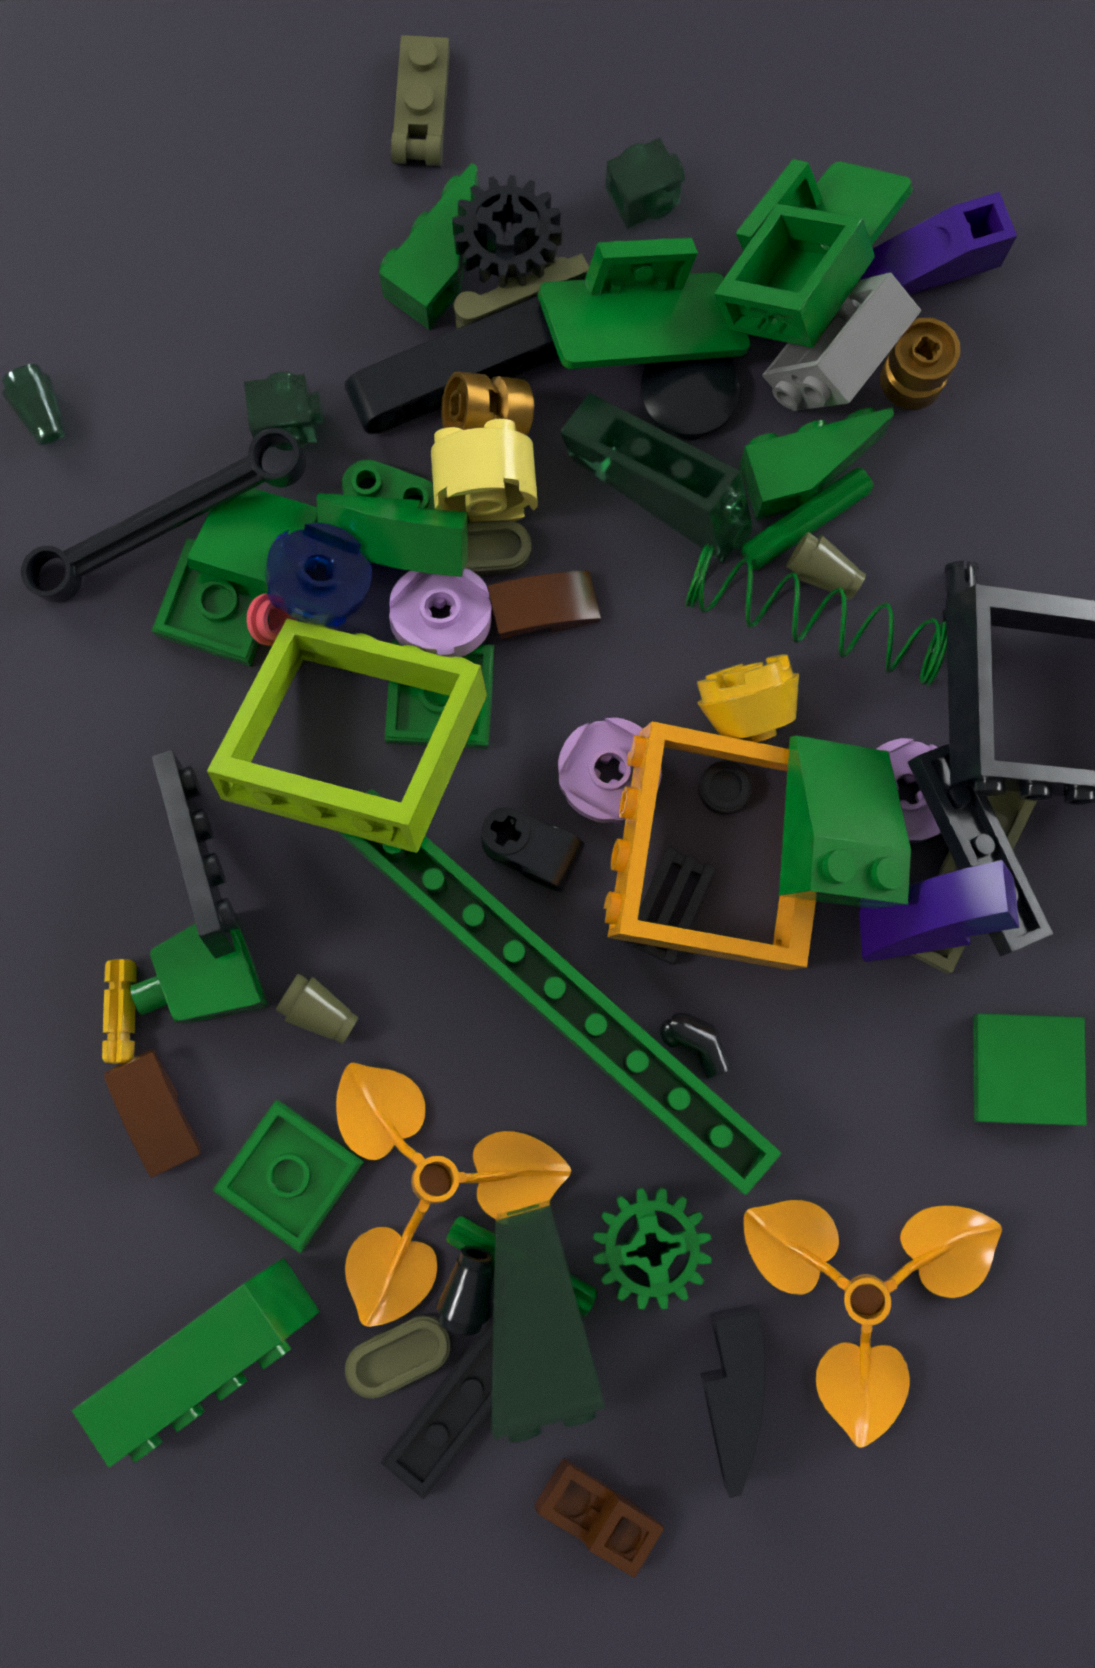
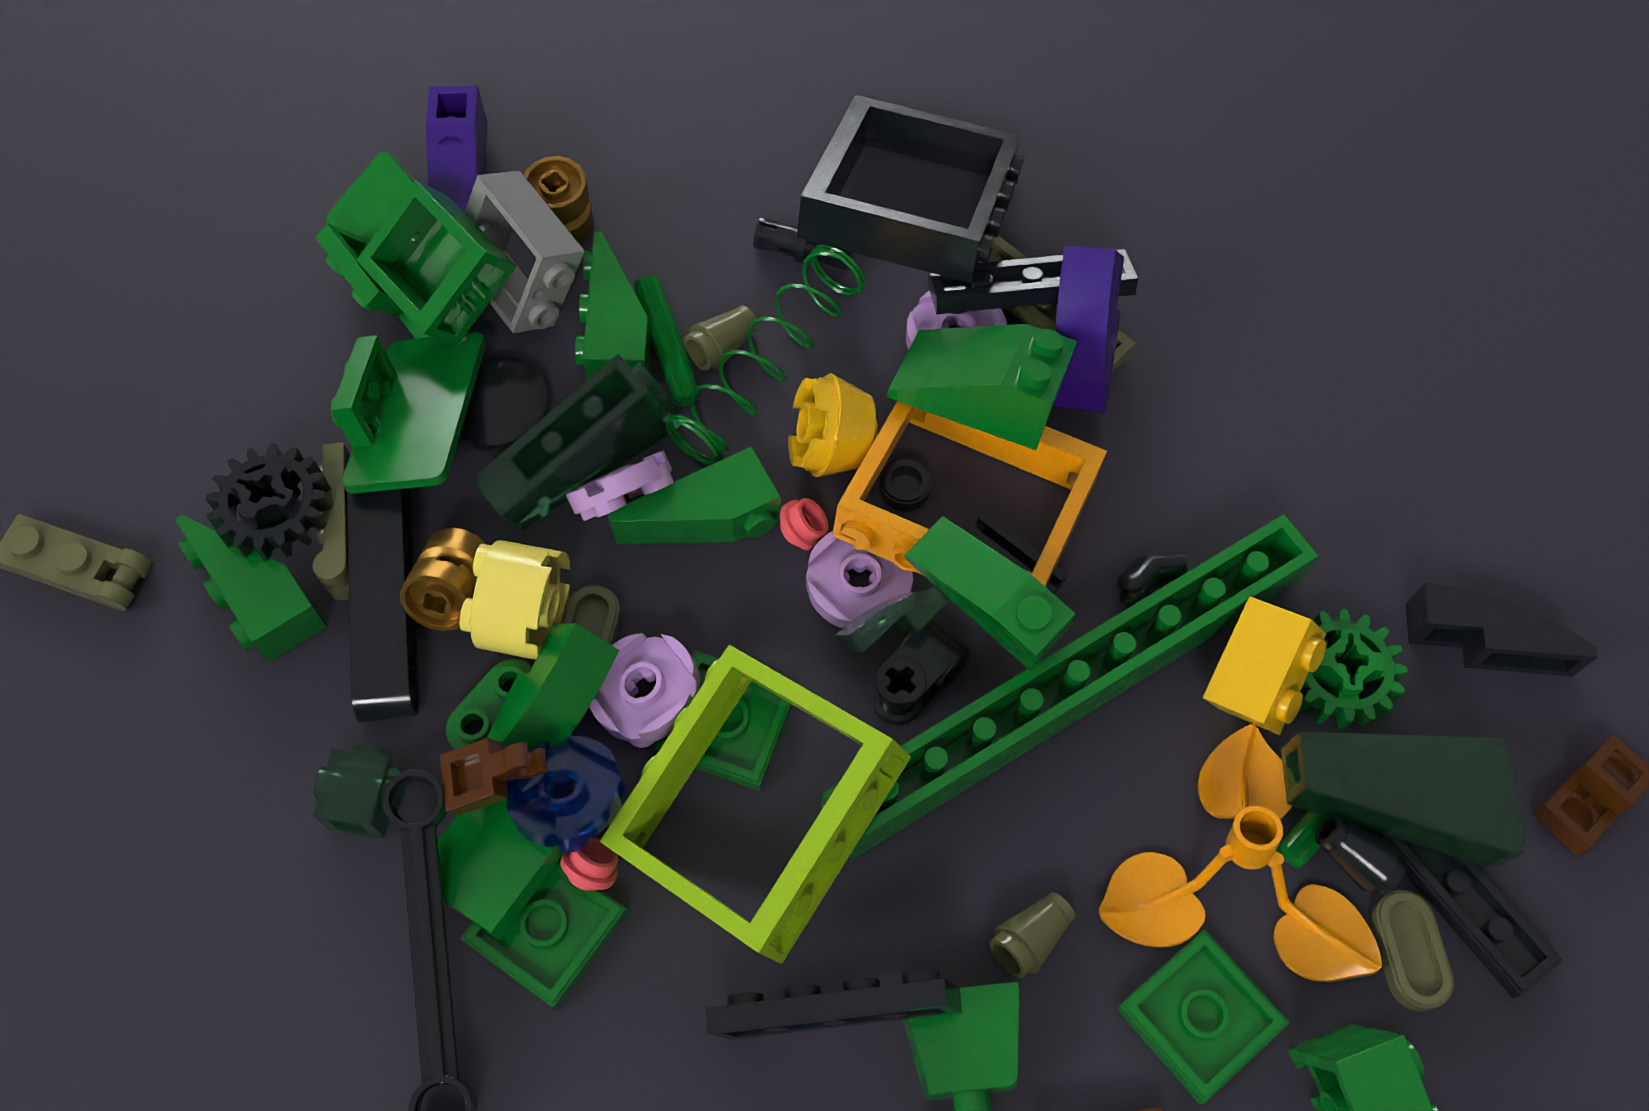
camera: 75 degrees left, 15 degrees down
(34, 402) = (225, 1075): clear green cone -> none
(310, 498) = (479, 772): none -> reddish brown plate
(544, 602) = (668, 590): reddish brown slope -> none
(579, 818) = (906, 611): none -> clear green slope
(597, 881) = (992, 591): none -> green slope
(620, 1166) = (1266, 665): none -> yellow brick
(625, 523) = (607, 492): none -> lavender plate
(643, 618) = (707, 506): none -> green slope
(644, 182) = (269, 378): clear green brick -> none
(655, 709) = (803, 523): none -> coral plate
(864, 1383) = (1360, 551): light orange plant -> none
(1029, 1069) = (1233, 315): green tile -> none

